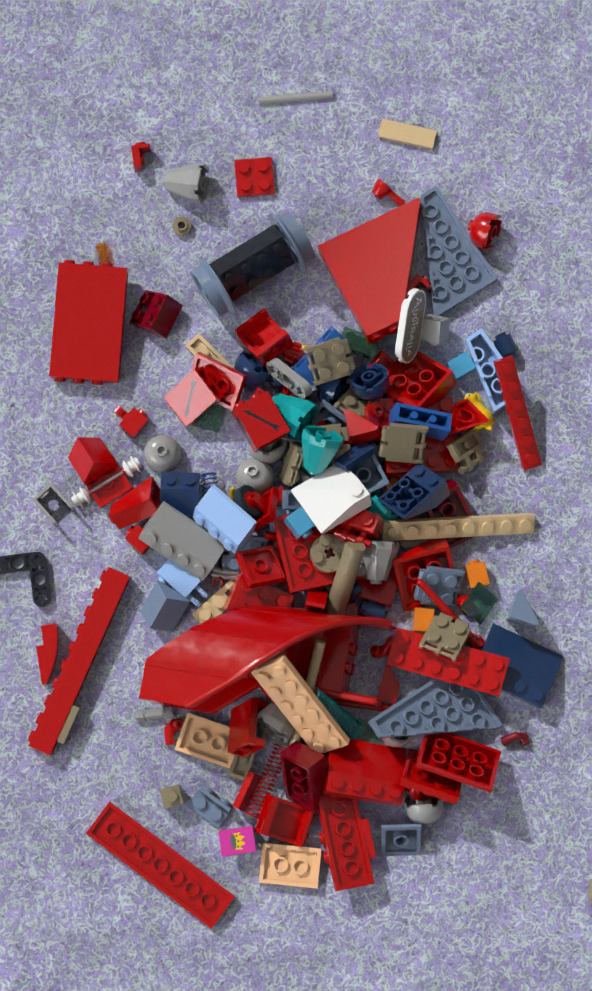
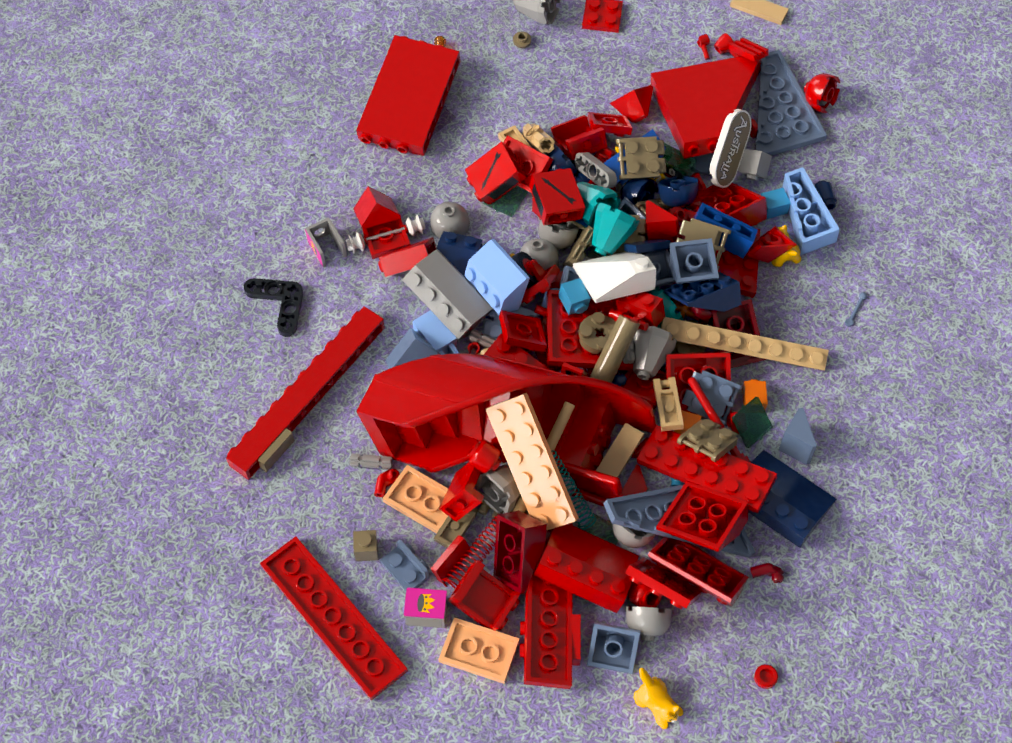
camera: 15 degrees right, 20 degrees down
(48, 652) = (277, 375): red slope -> none
(132, 422) = (427, 187): red brick -> none
(132, 538) = (402, 293): red brick -> none
(156, 313) = (477, 102): dark red slope -> none
(226, 349) = (538, 138): none -> tan piece
(253, 263) = (583, 69): brick -> none
(257, 706) = (484, 456): none -> red head
(289, 313) = (610, 123): none -> red plate
(309, 283) = (635, 103): none -> red slope
(359, 189) = (704, 40): none -> red hand
(369, 662) = (621, 451): none -> tan tile
(400, 470) = (693, 261): none -> sand blue slope
(403, 608) = (668, 404): none -> tan plate
(408, 195) = (748, 49): none -> red tile
(443, 871) = (655, 696): none -> yellow animal
(454, 713) = (704, 517): none -> red slope
(463, 447) = (764, 271): dark tan plate -> none
(517, 412) = (827, 249): red plate -> none
(529, 831) = (766, 676): none -> red tile
(557, 446) = (849, 322): none -> sand blue hinge

